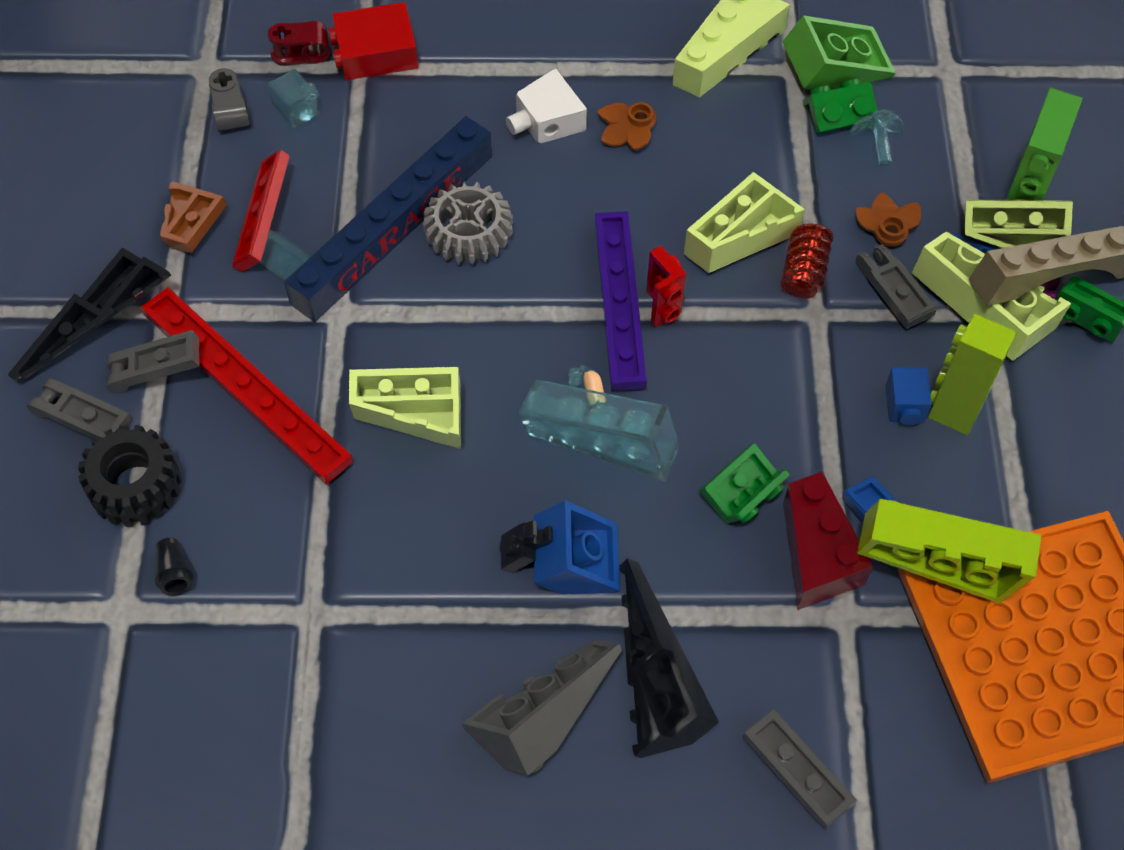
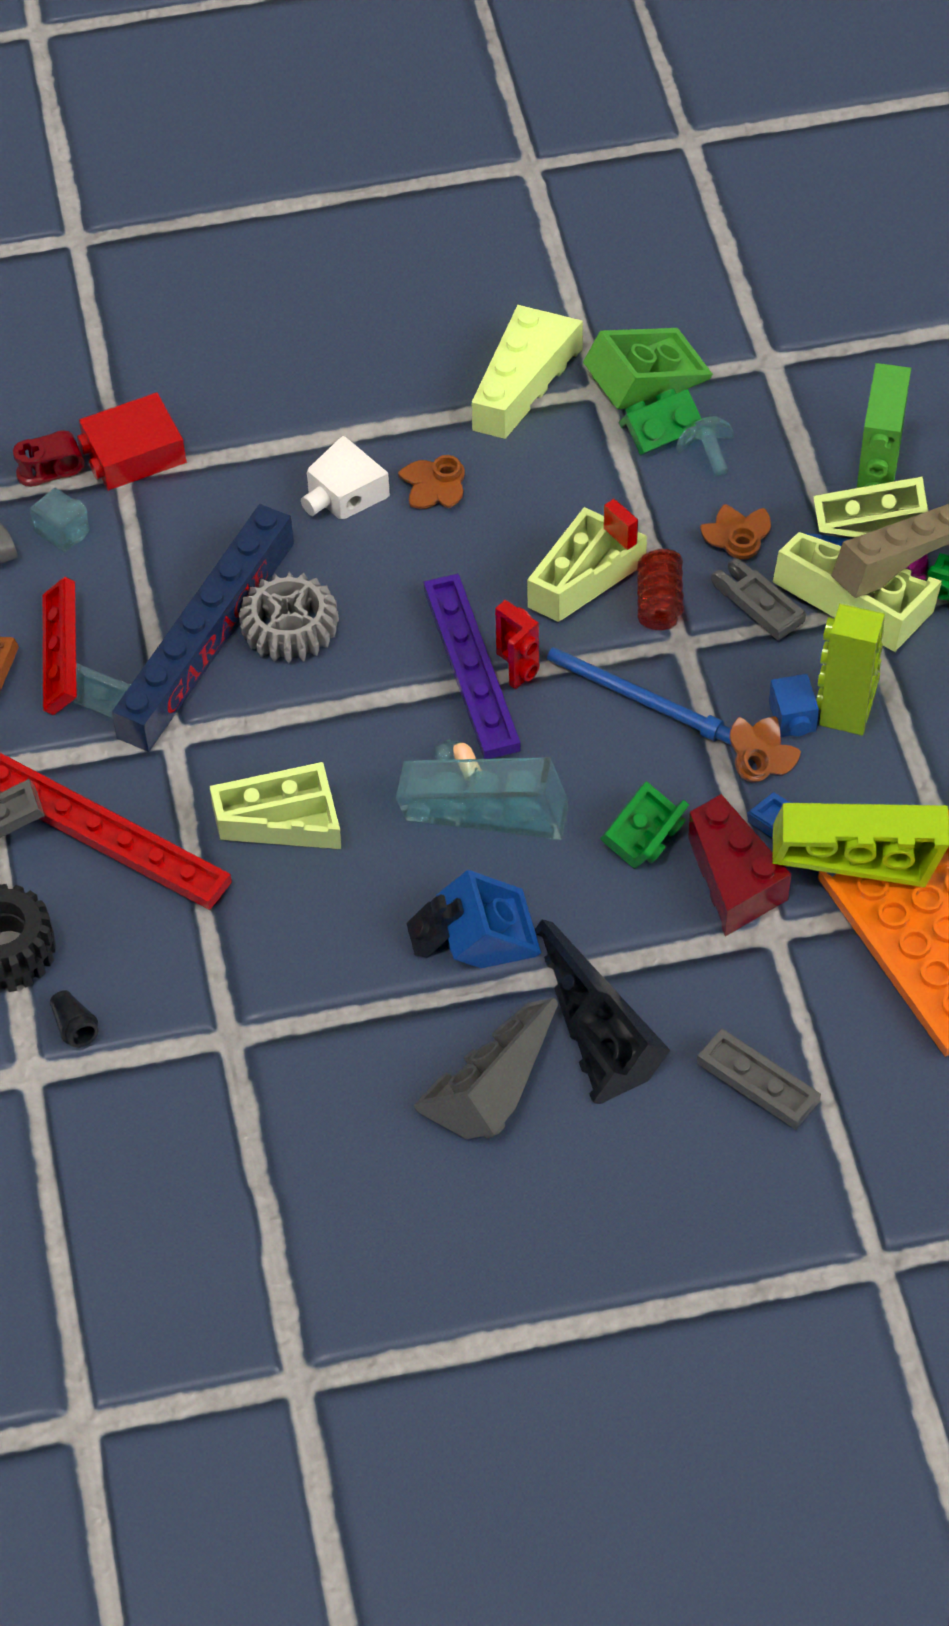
camera: 10 degrees left, 5 degrees down
(782, 194) = (620, 524): none -> red tile
(825, 399) = (709, 727): none -> blue bar
(871, 428) = (762, 746): none -> dark orange plate

